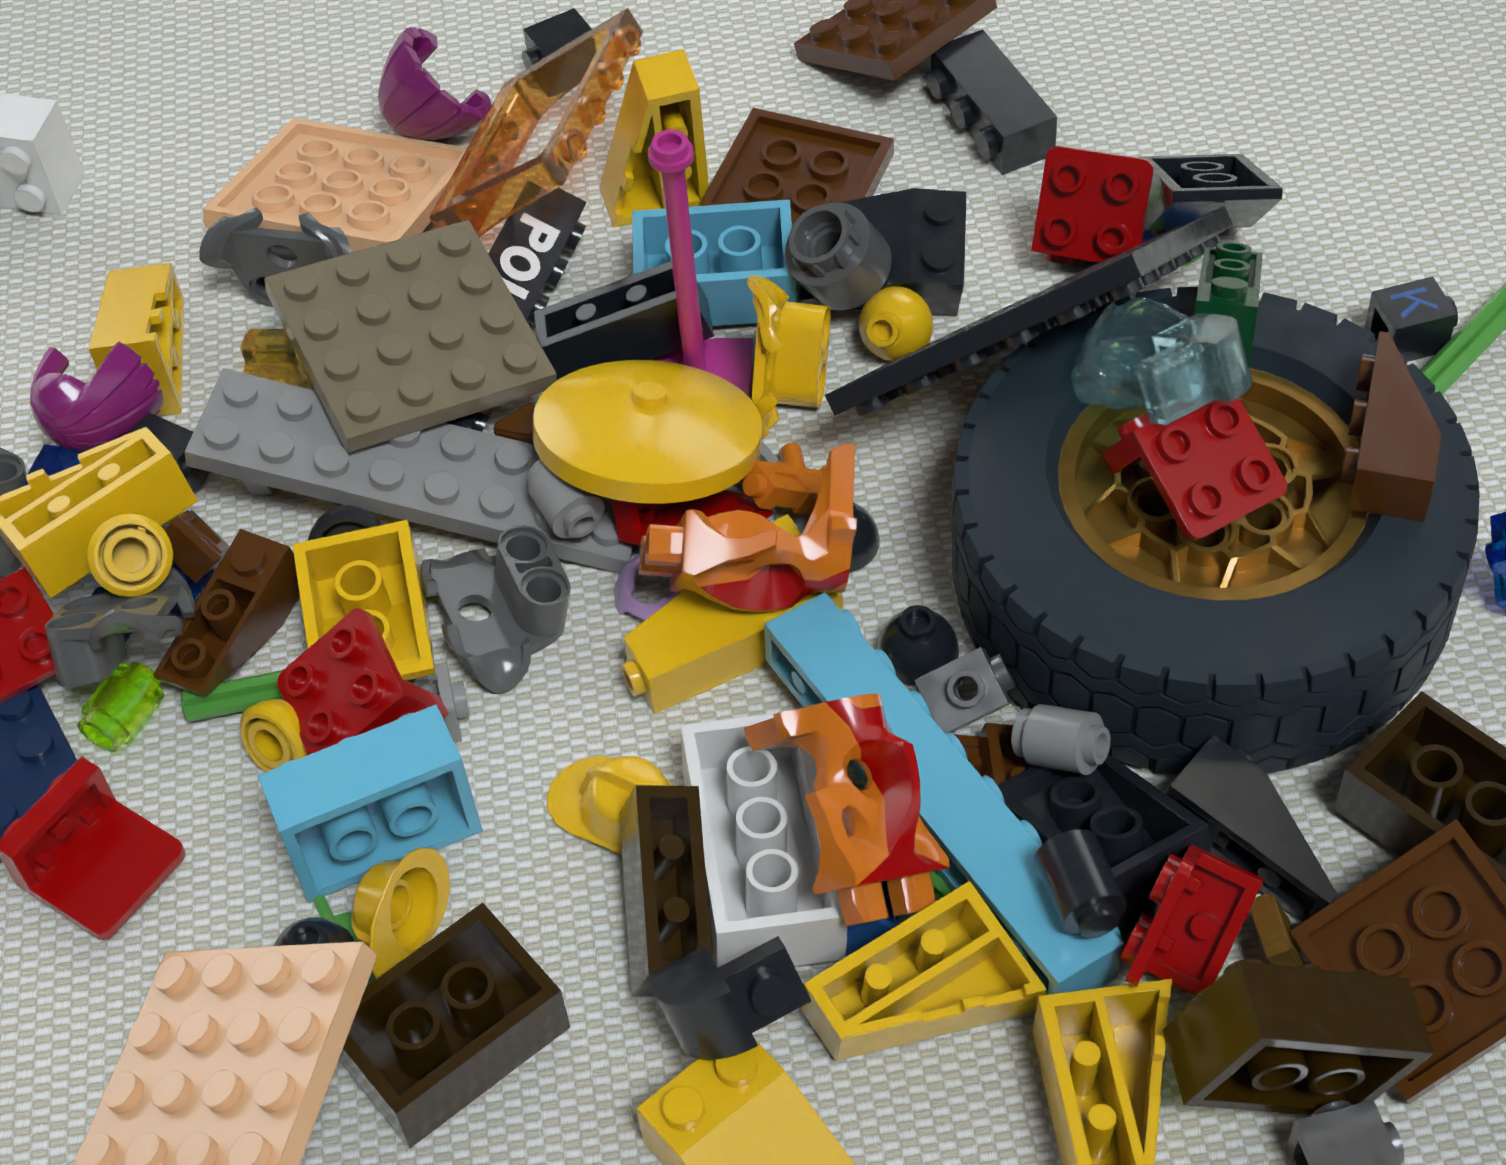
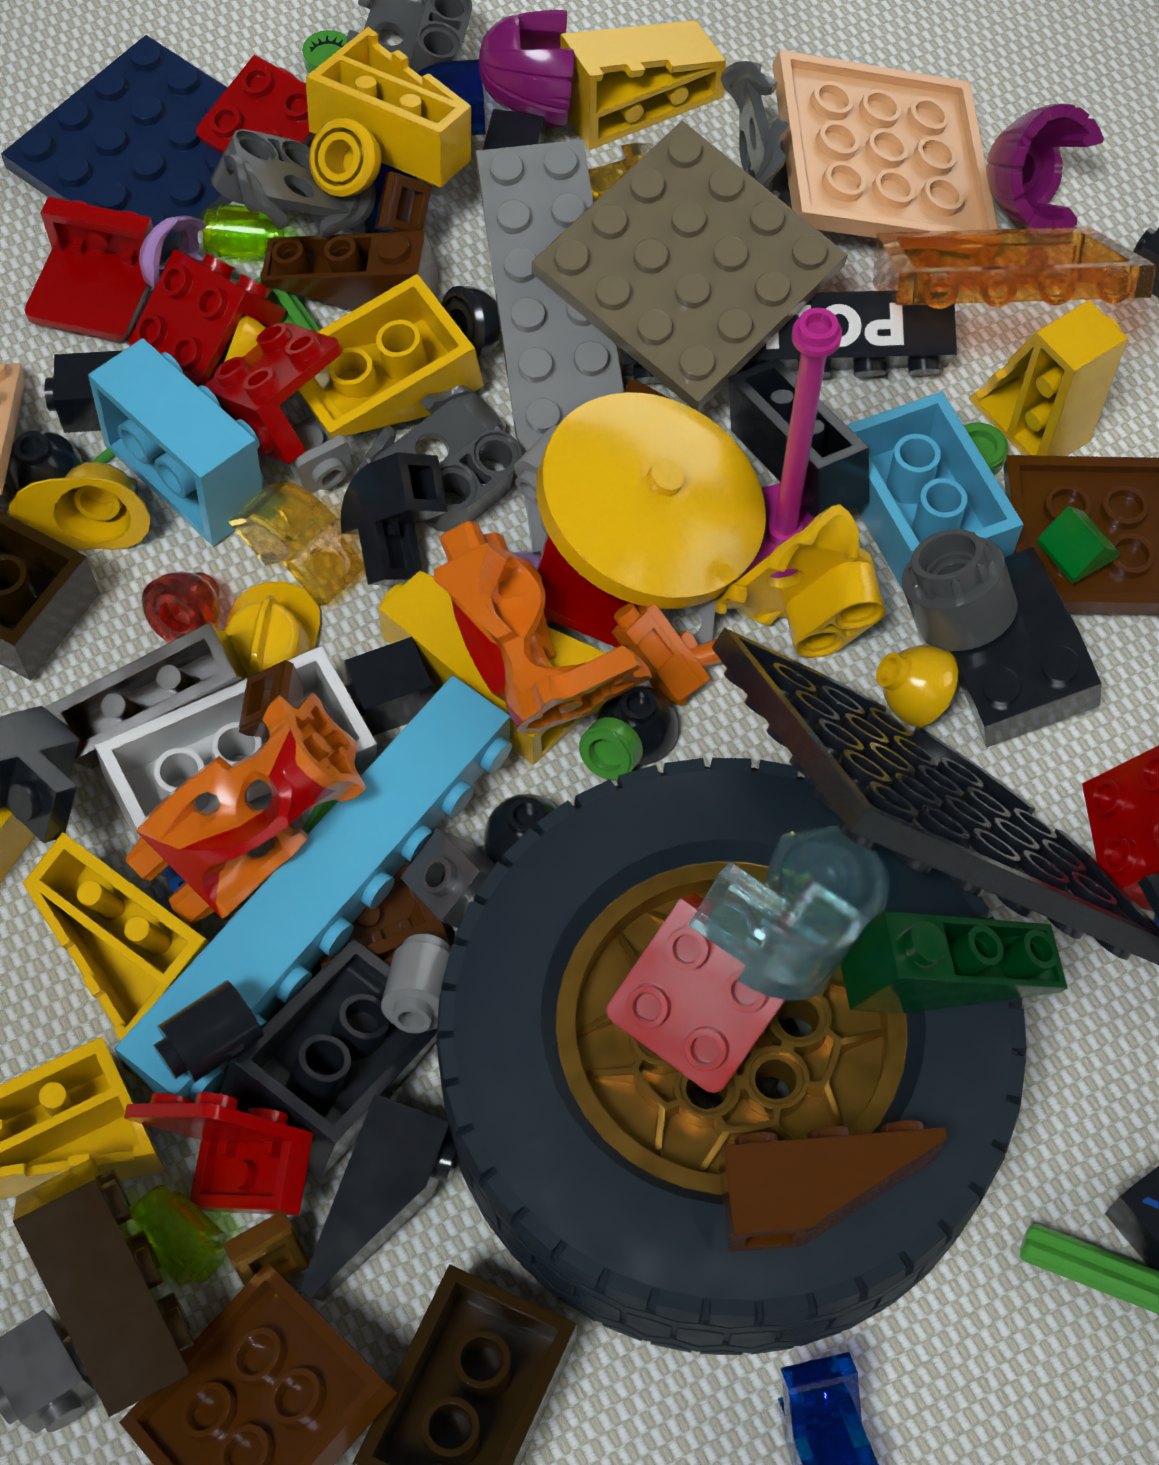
camera: 65 degrees right, 10 degrees up
(120, 768) = (152, 245): none -> lavender piece
(208, 765) = (198, 311): none -> red bracket
(246, 886) = (71, 392): none -> black brick
(518, 733) = (299, 531): none -> clear yellow brick
(535, 643) = (383, 509): none -> black brick
(560, 858) = (180, 603): none -> clear red brick
(724, 688) = (388, 685): none -> black brick
(735, 767) = (262, 690): none -> reddish brown slope
(812, 184) = (1076, 545): none -> green slope
(870, 555) = (610, 748): none -> bright green tile

